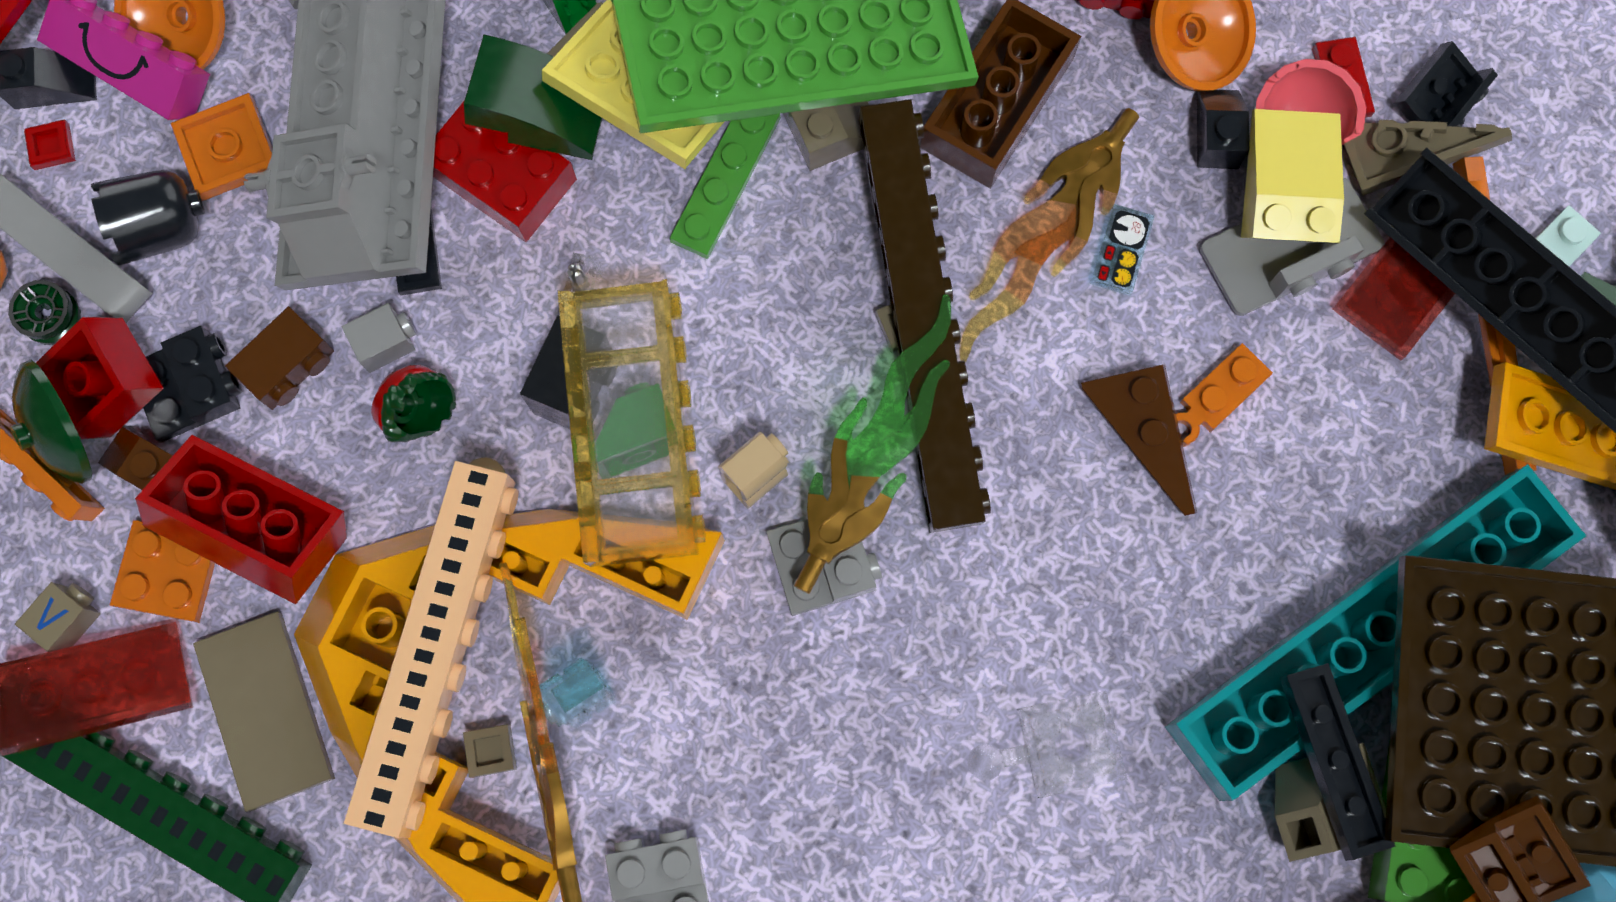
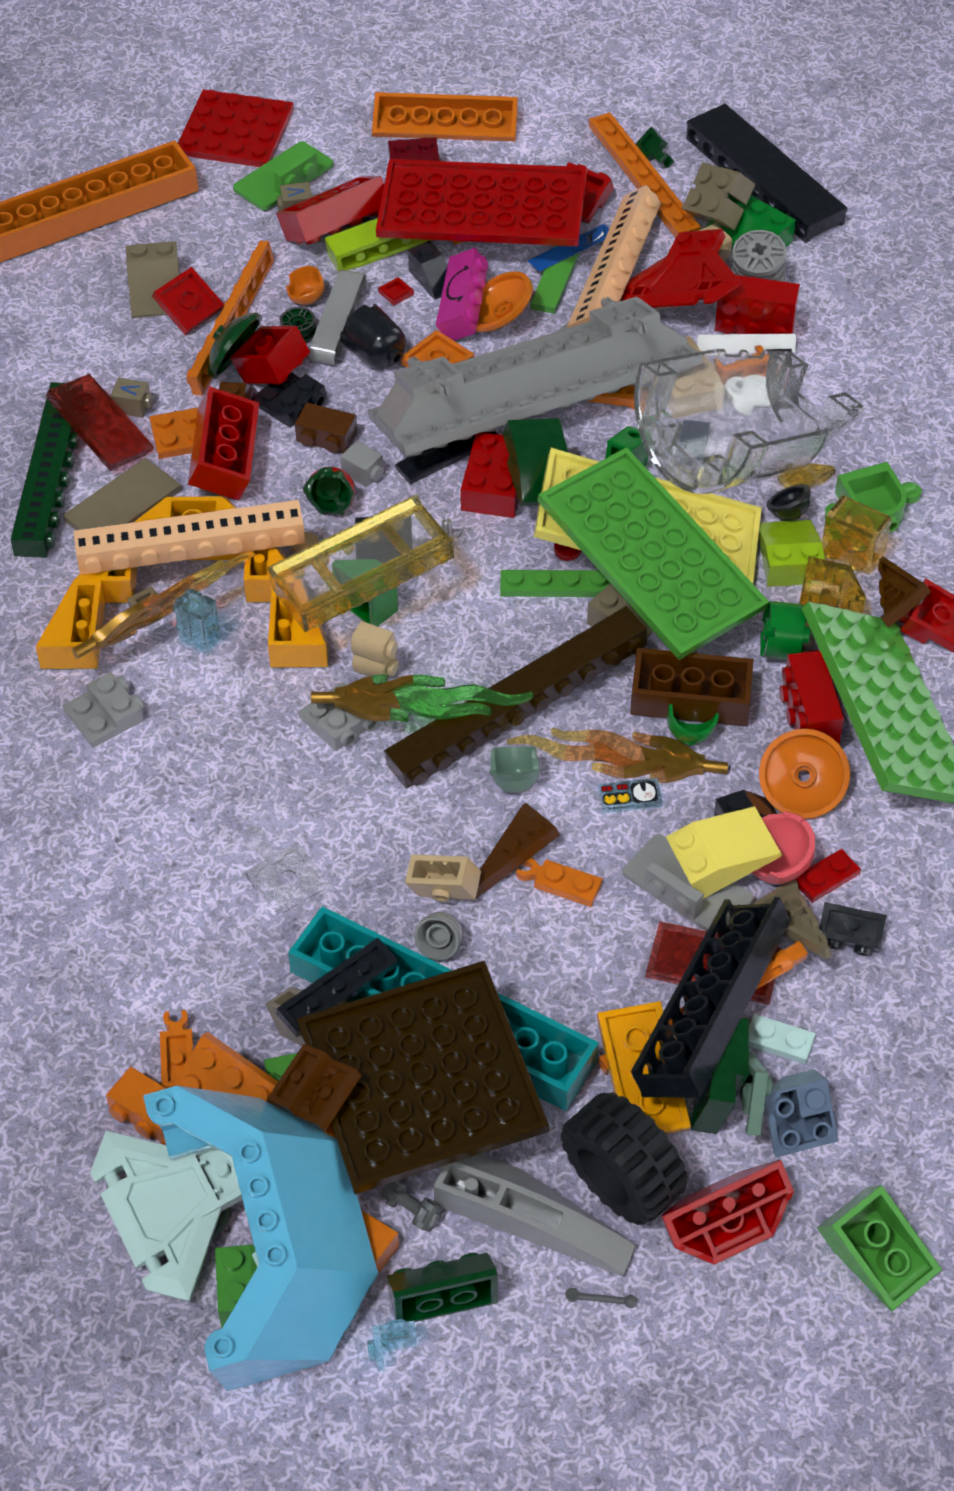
camera: 65 degrees right, 25 degrees down
(1033, 370) = (514, 768): none -> sand green helmet
(1063, 121) = (690, 733): none -> green helmet
(1179, 543) = (443, 877): none -> tan brick
(1256, 583) = (438, 936): none -> light grey helmet

